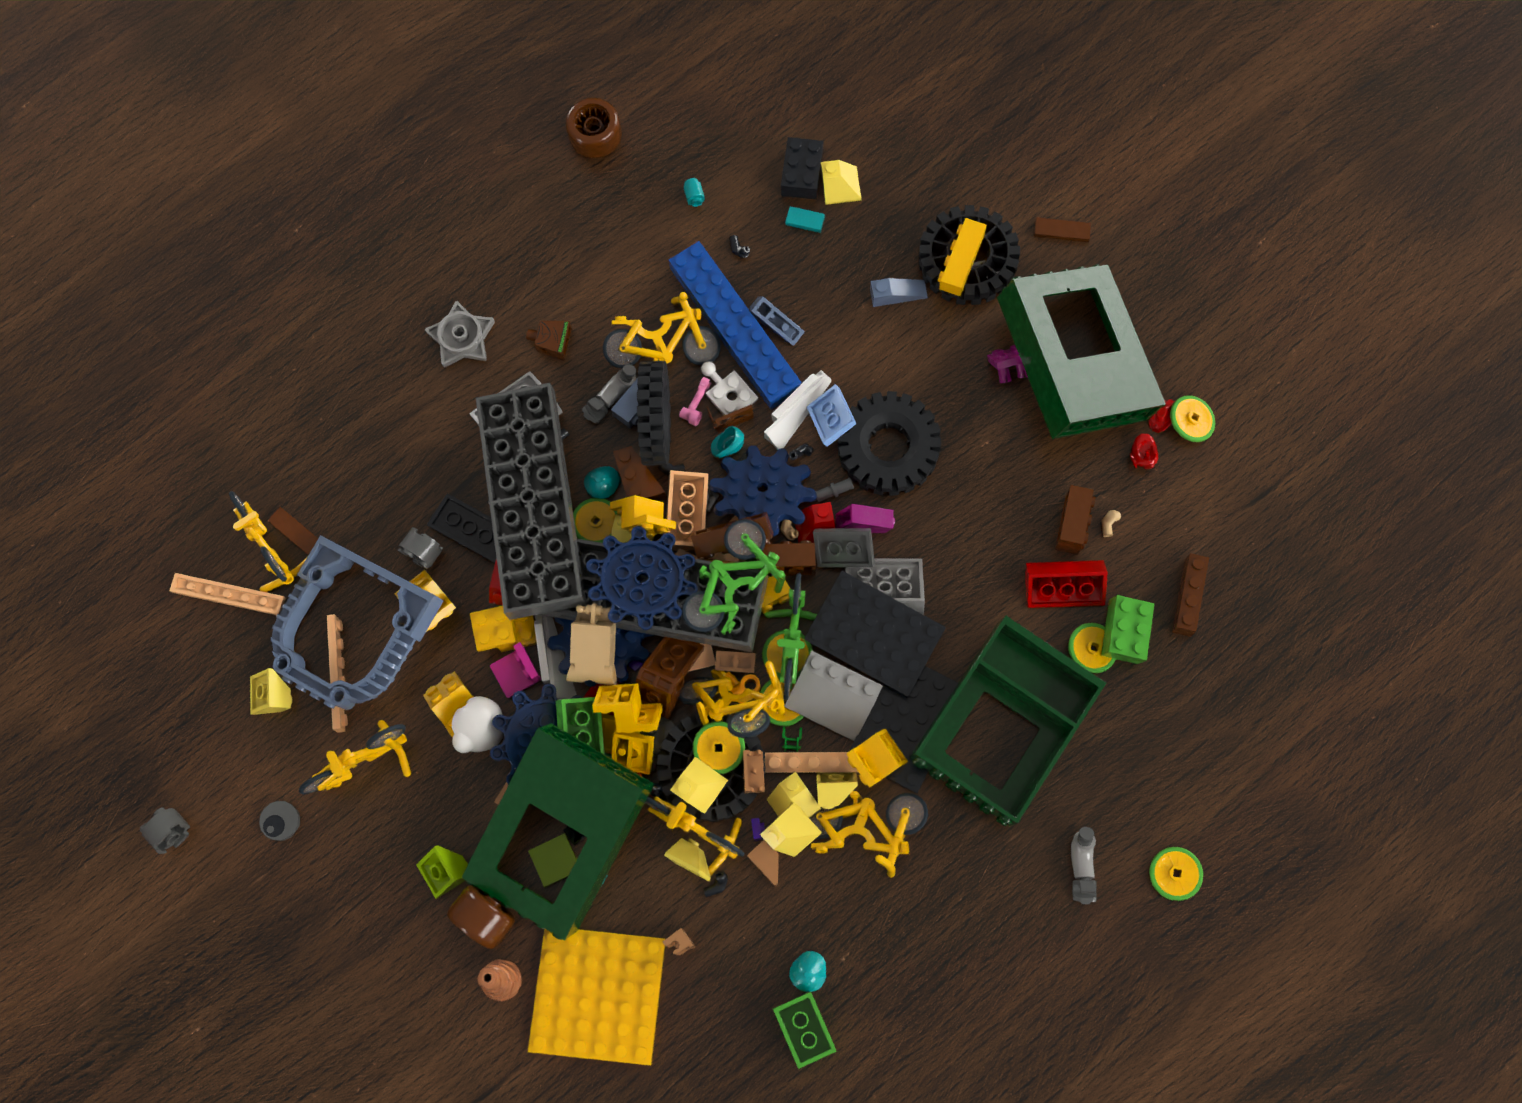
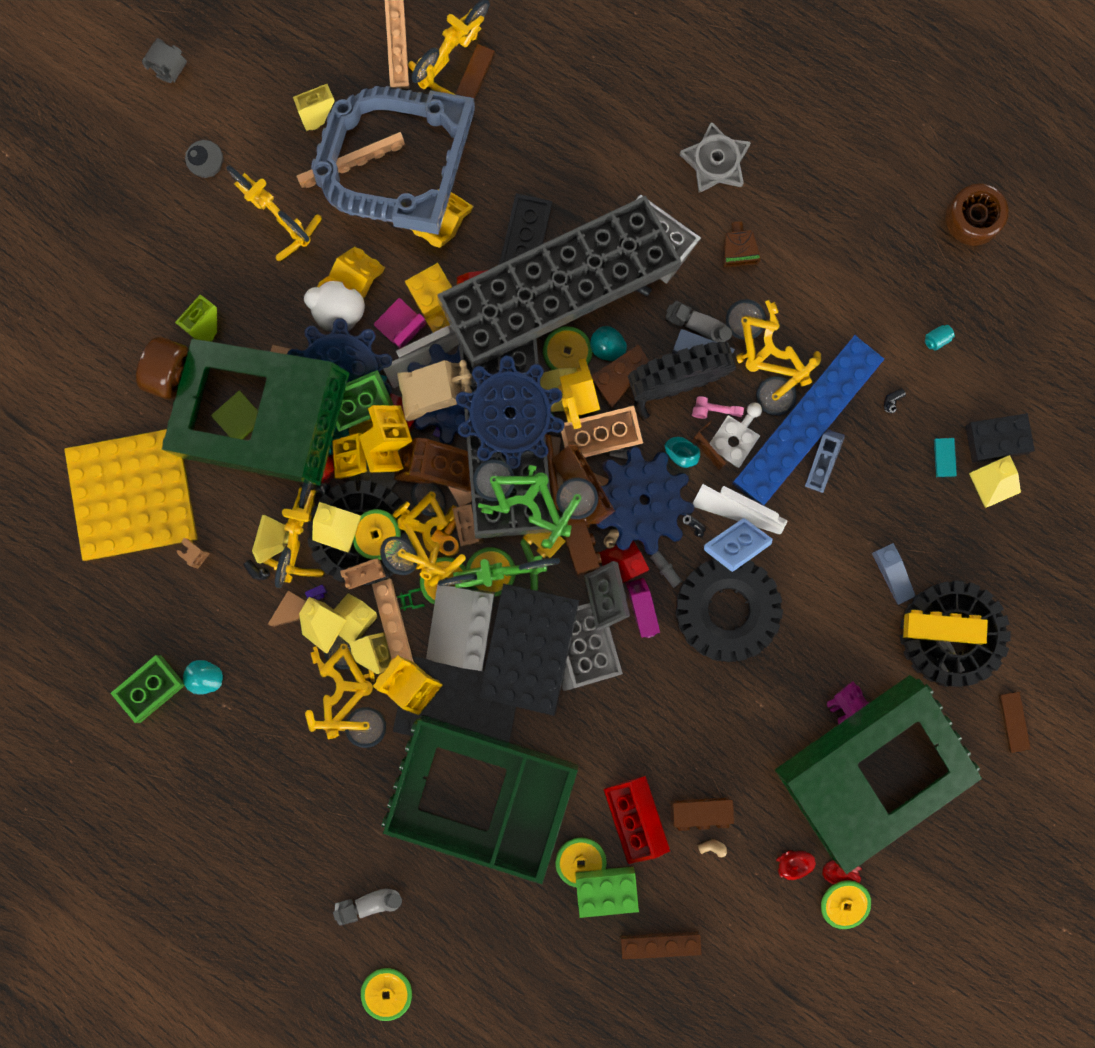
camera: 70 degrees right, 10 degrees up
(420, 547) = (489, 195): dark grey brick -> none
(500, 980) = (117, 402): nougat cone -> none

